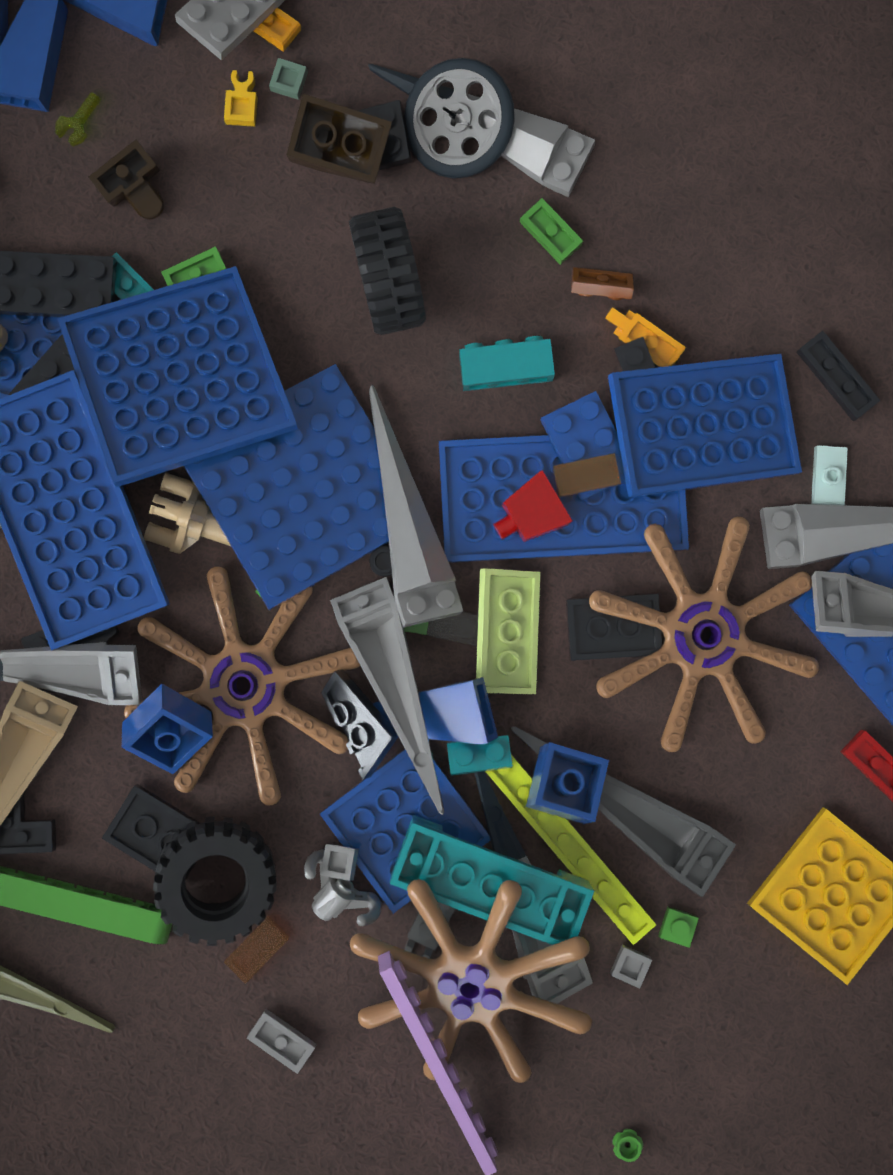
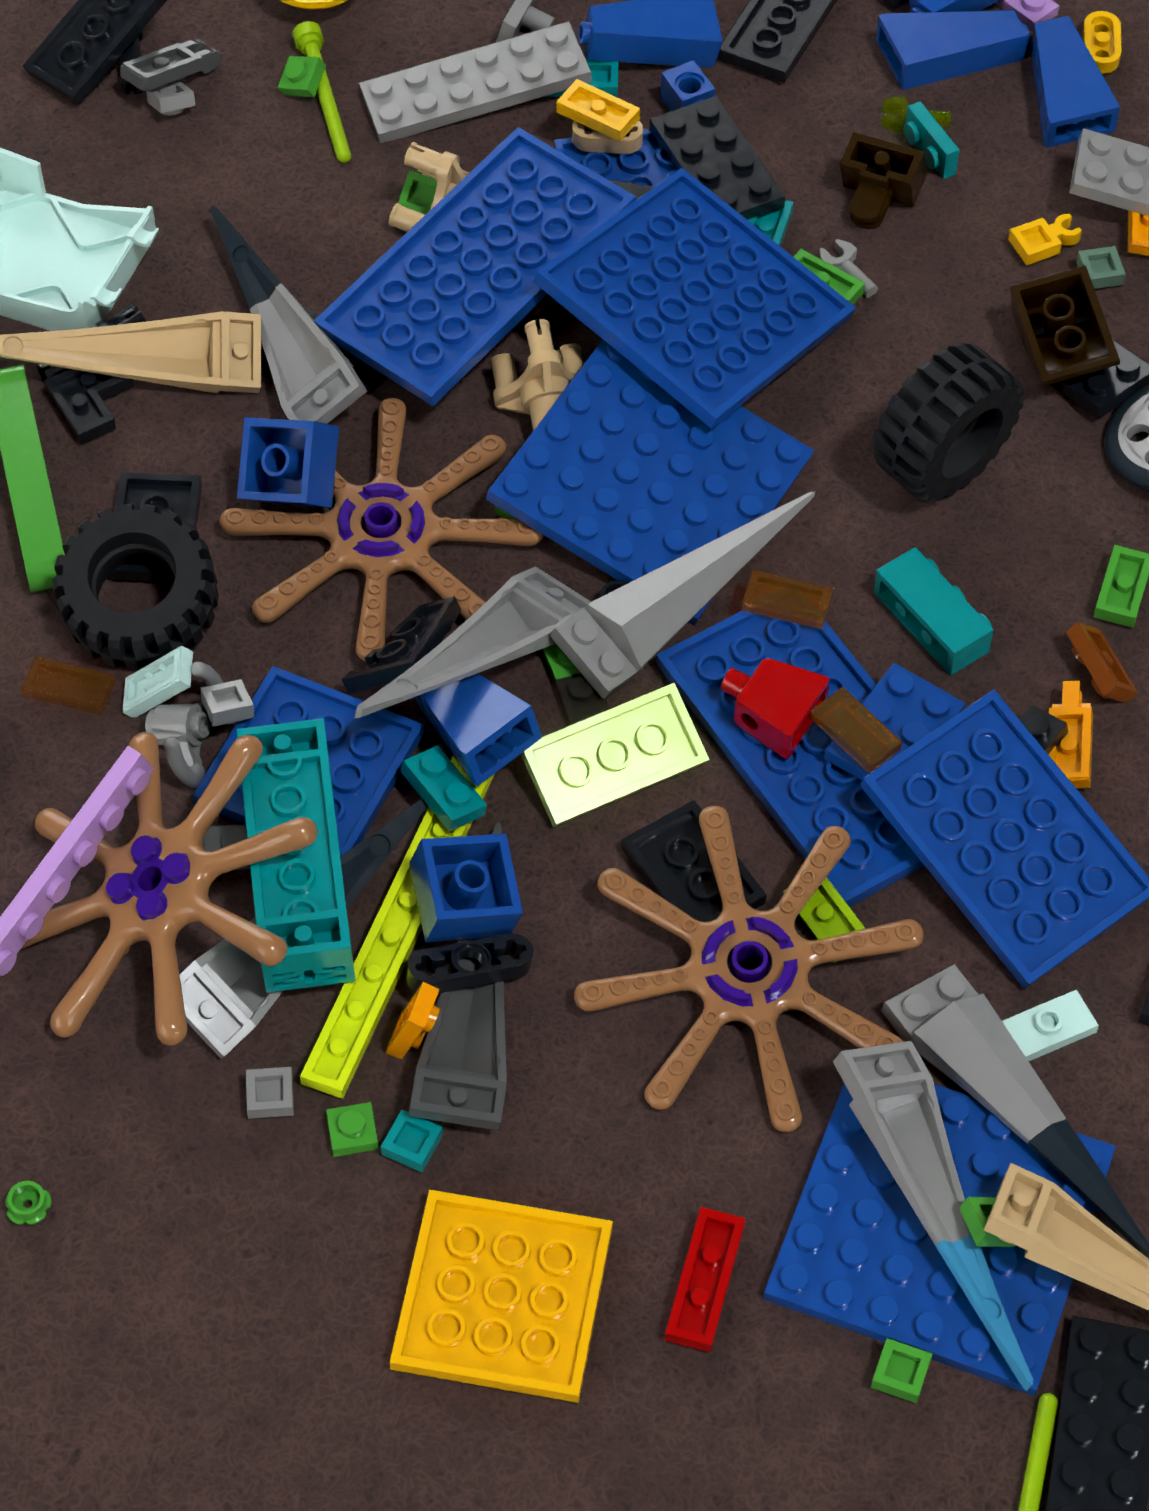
camera: 60 degrees right, 30 degrees down
(103, 122) = (931, 139): none -> teal plate
(188, 248) = (845, 263): none -> light grey bar
(295, 897) = (157, 682): none -> light aqua plate
(451, 454) = (787, 599): none -> clear orange tile
(624, 782) = (479, 949): none -> black beam
(641, 862) = (414, 1021): none -> light orange plate
(695, 563) = (828, 913): none -> lime plate
(711, 902) = (412, 1141): none -> teal plate

